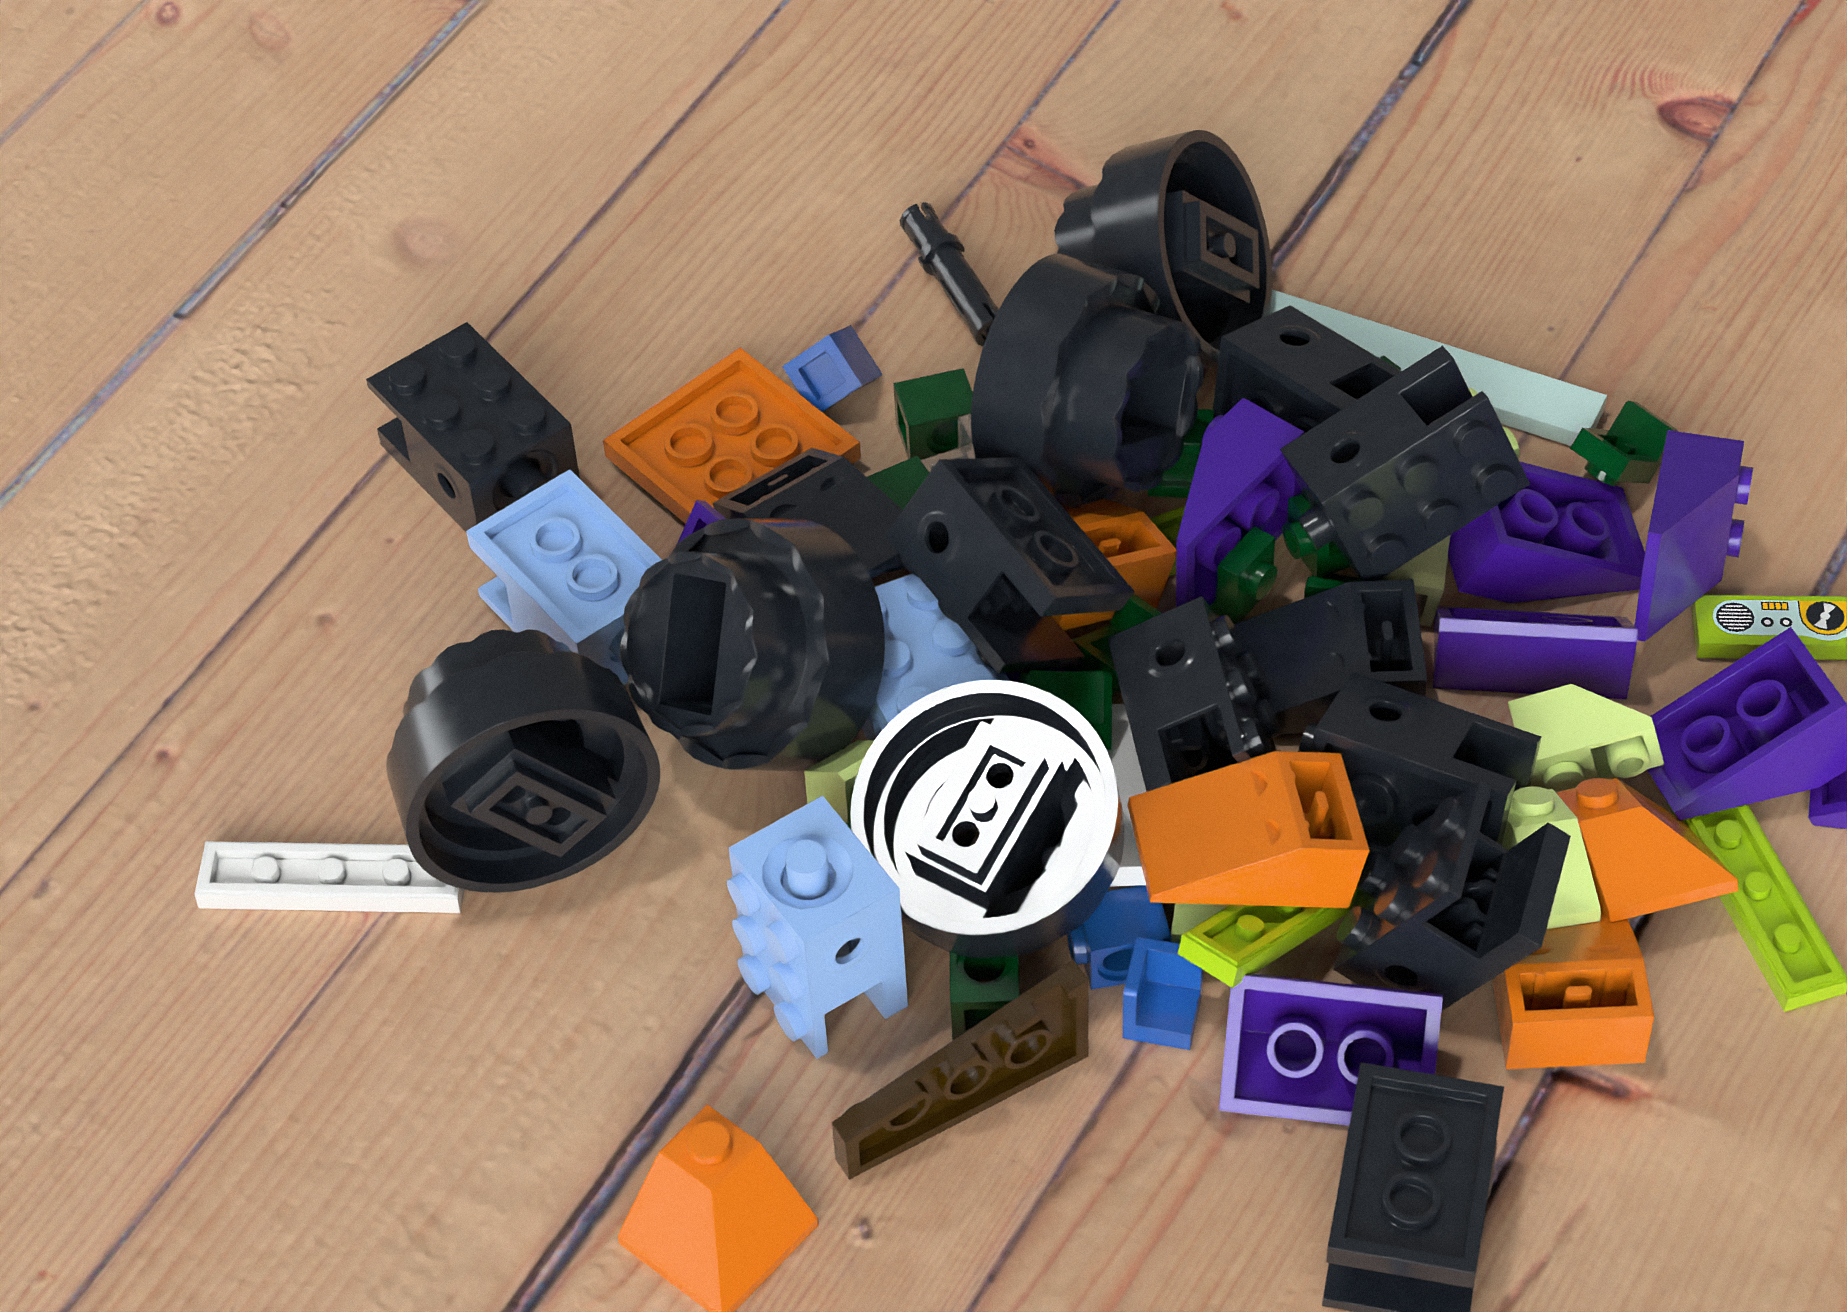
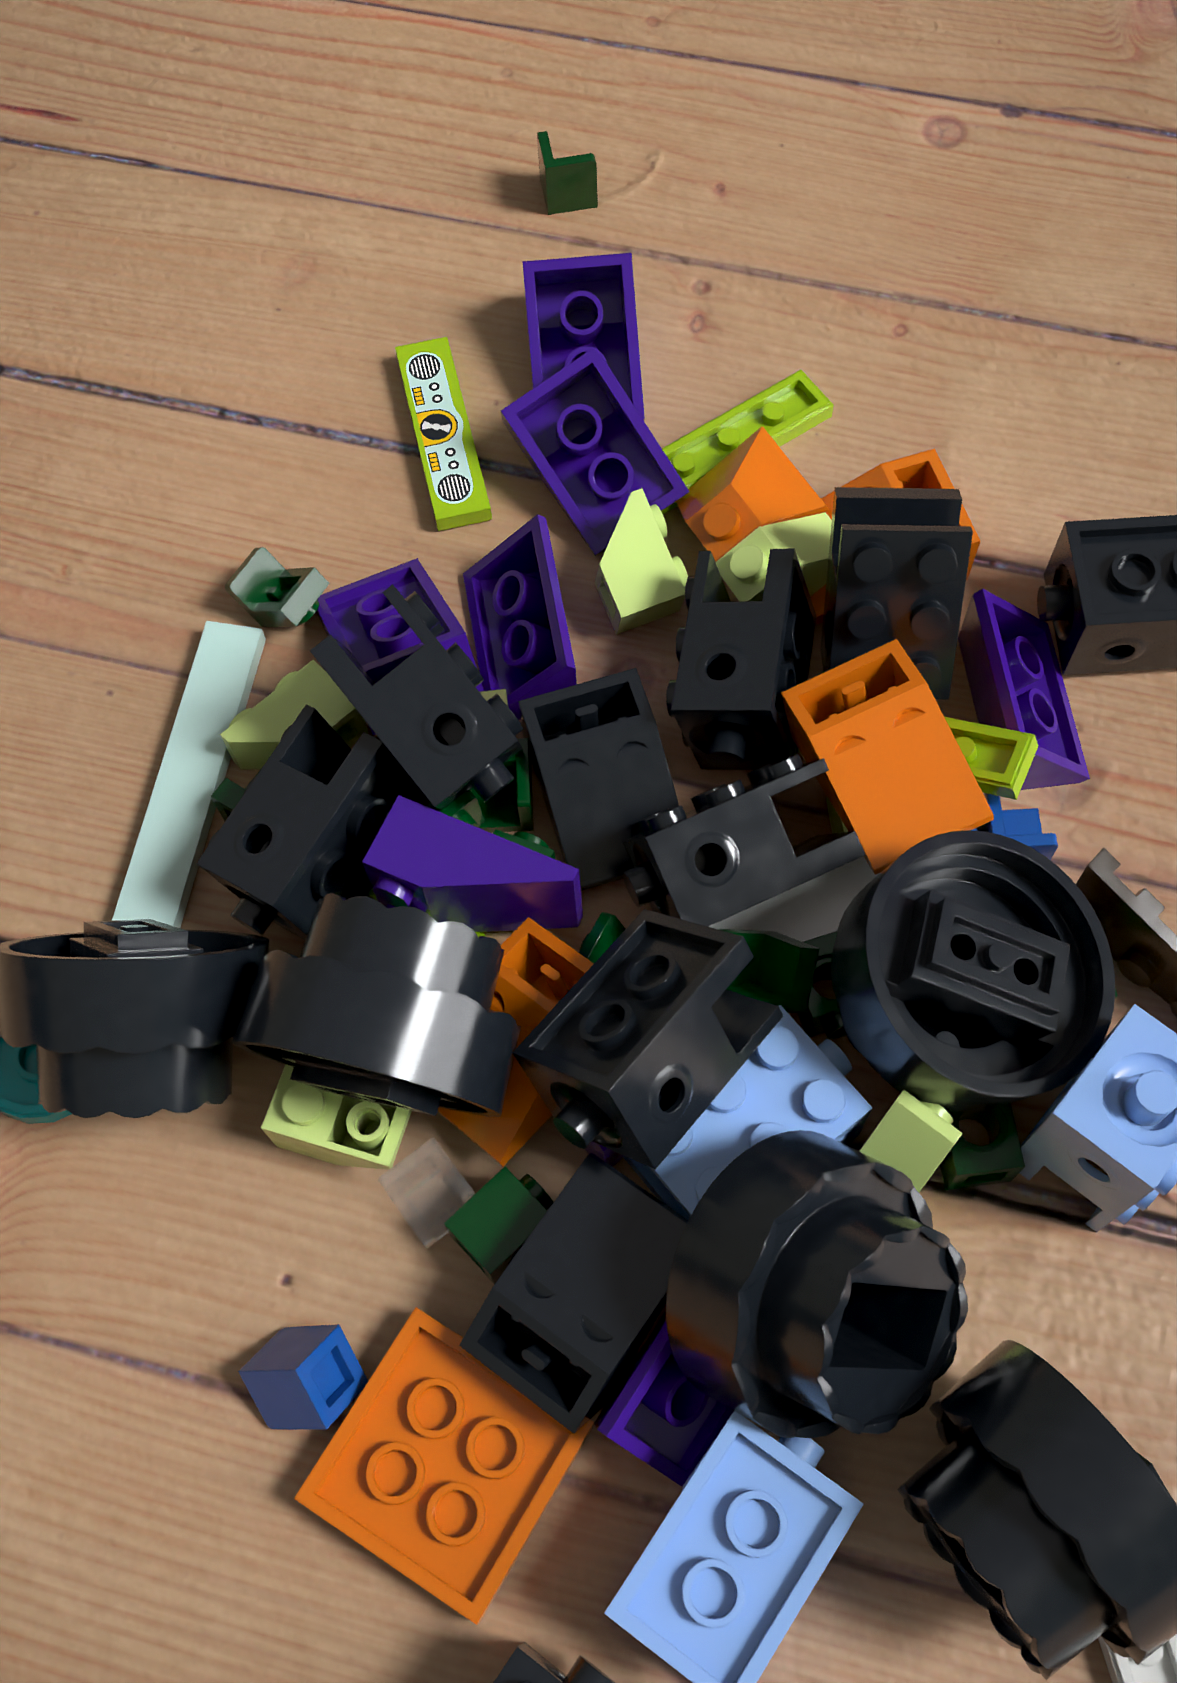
camera: 105 degrees left, 15 degrees up
(930, 410) = (355, 1231): dark green brick -> none
(944, 259) = (114, 1290): black pin -> none
(1690, 525) = (400, 506): dark purple slope -> none

